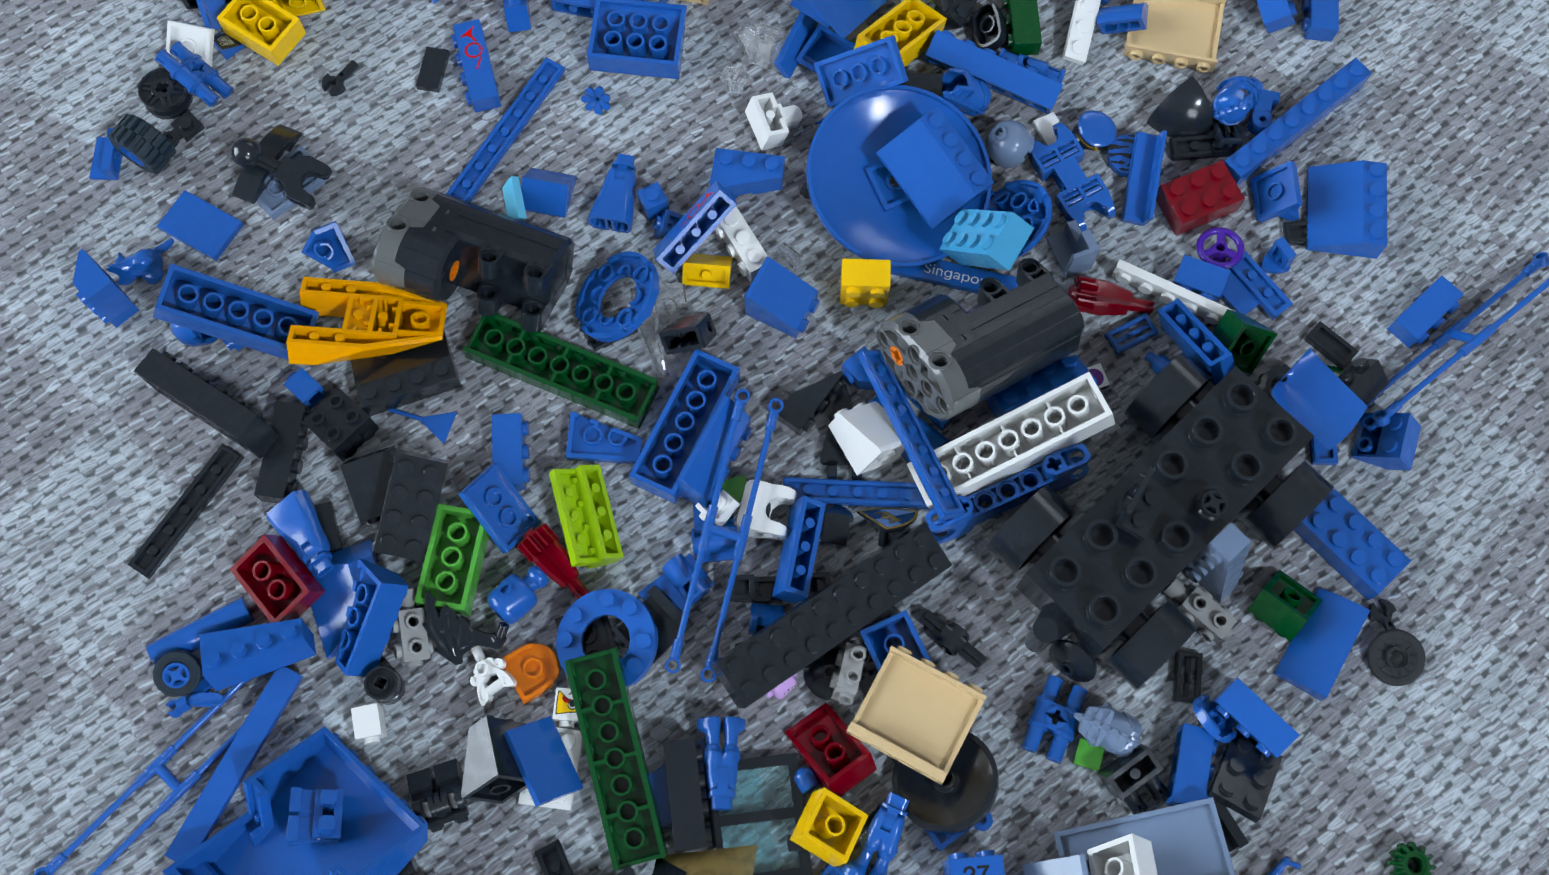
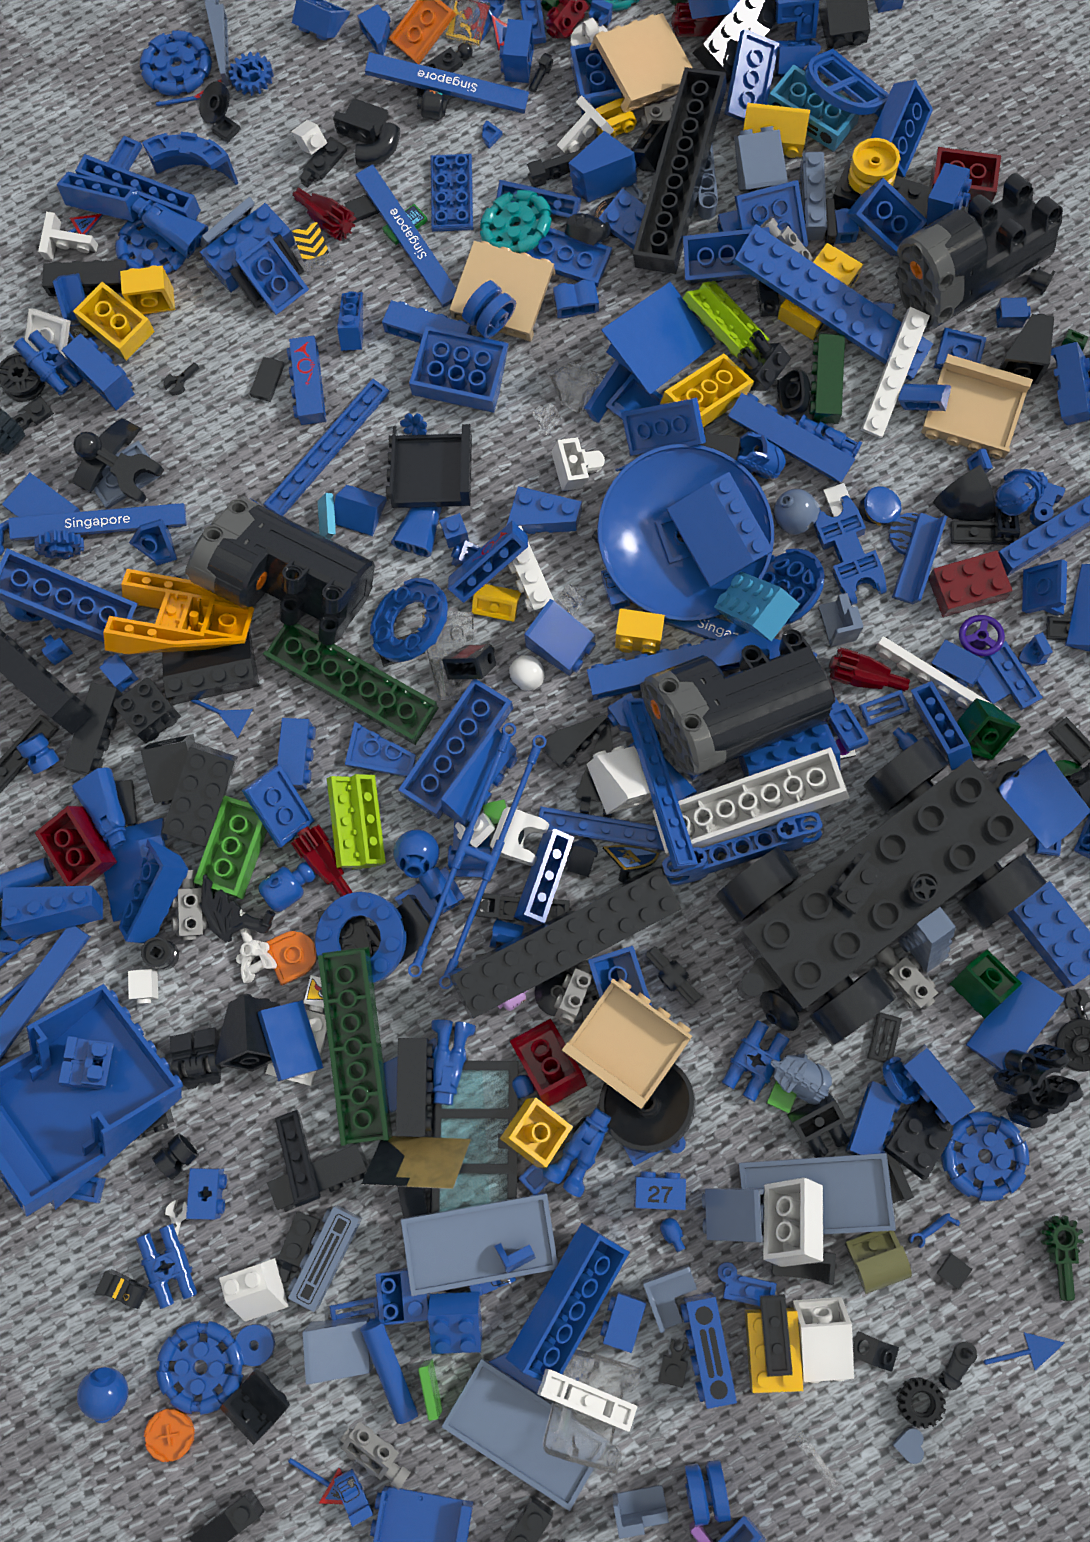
camera: 15 degrees right, 5 degrees up
(224, 484) = (38, 753): none -> blue wheel
(225, 259) = (59, 544): none -> blue gear
(233, 372) = (56, 649): none -> blue tile
(250, 77) = (99, 371): none -> blue brick
(260, 233) = (97, 521): none -> blue tile
(619, 142) = (430, 469): none -> black panel
(656, 540) = (416, 852): none -> blue brick
(750, 339) = (527, 672): none -> white hair
(830, 246) = (615, 597): none -> blue leg
(859, 329) = (626, 675): none -> blue brick
(1097, 356) = (847, 727): none -> blue hinge
(1188, 71) = (980, 458): none -> blue tile
(1330, 786) = (999, 1160): none -> blue plate
(1358, 714) = (1035, 1093): none -> black piece

